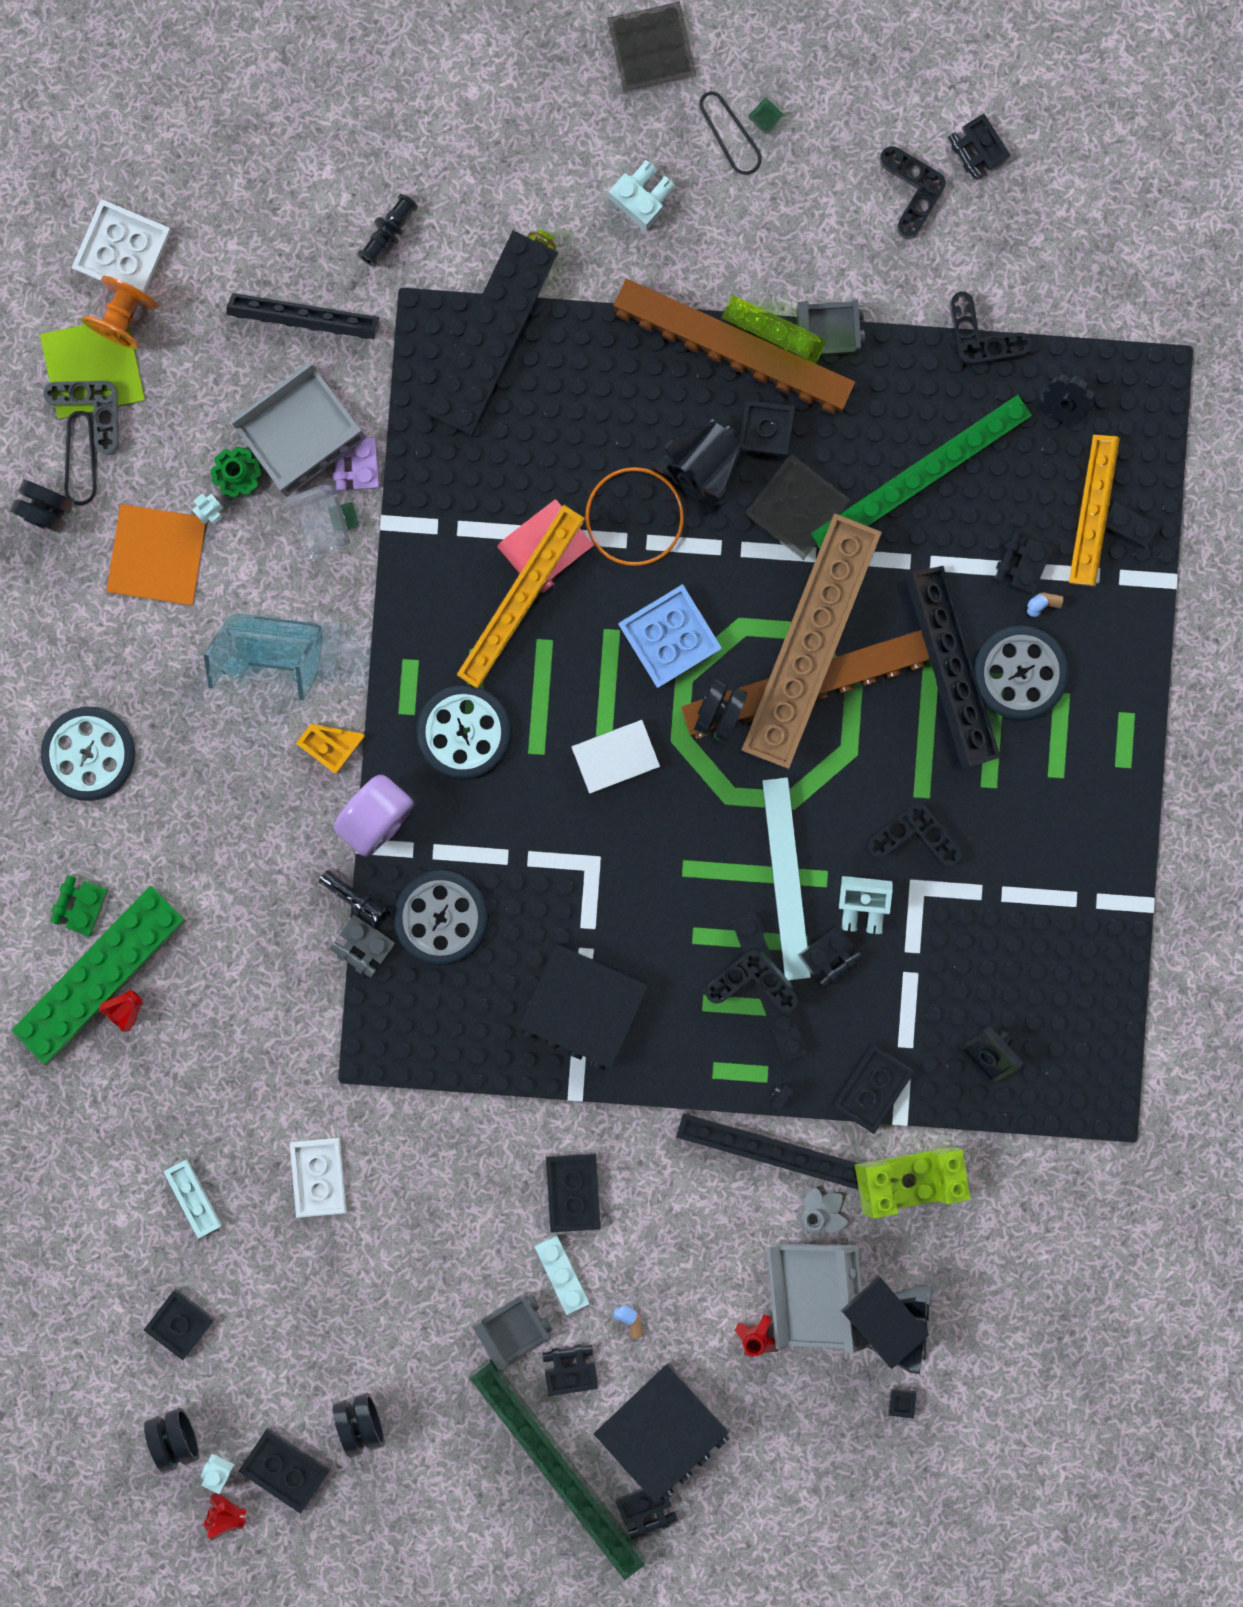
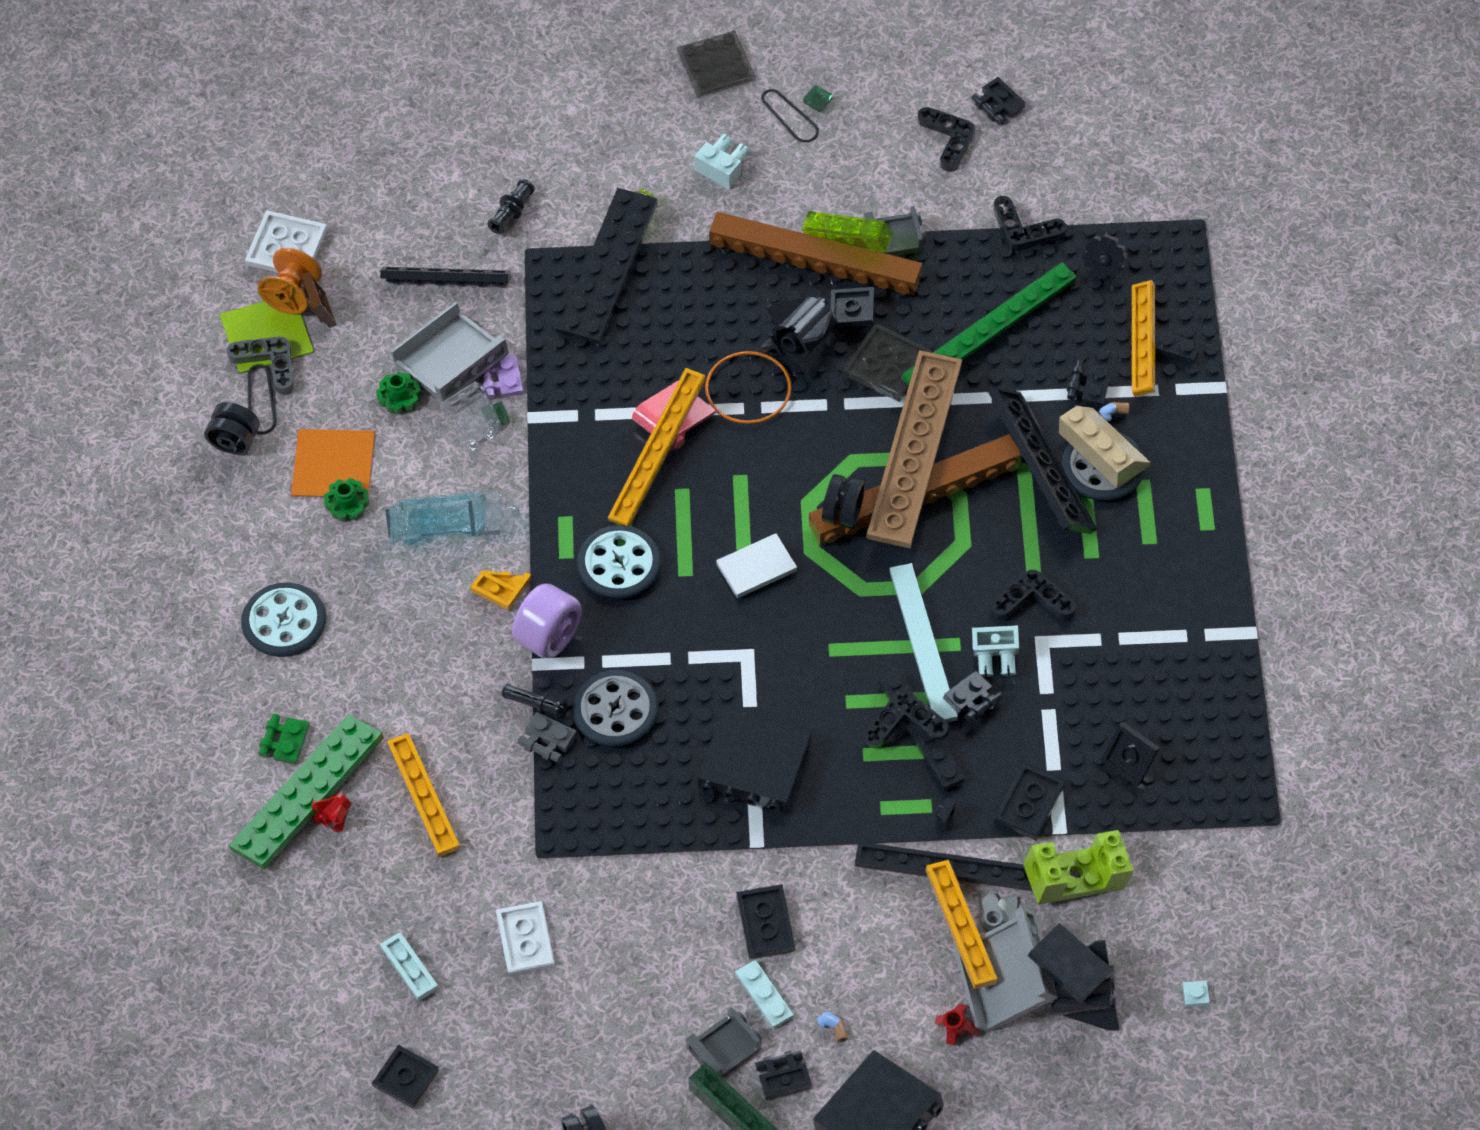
camera: 10 degrees left, 30 degrees down
(152, 339) = (318, 300): none -> reddish brown plate
(179, 609) = (346, 499): none -> green plant
(208, 508) = (376, 419): light aqua gear -> none
(223, 995) = (423, 795): none -> light orange plate
(670, 636) = (791, 468): light blue plate -> none
(778, 1233) = (961, 924): none -> light orange plate
(902, 1403) = (1103, 1067): black plate -> none
(1012, 1330) = (1195, 994): none -> light aqua plate
(1025, 655) = (1102, 445): none -> tan slope

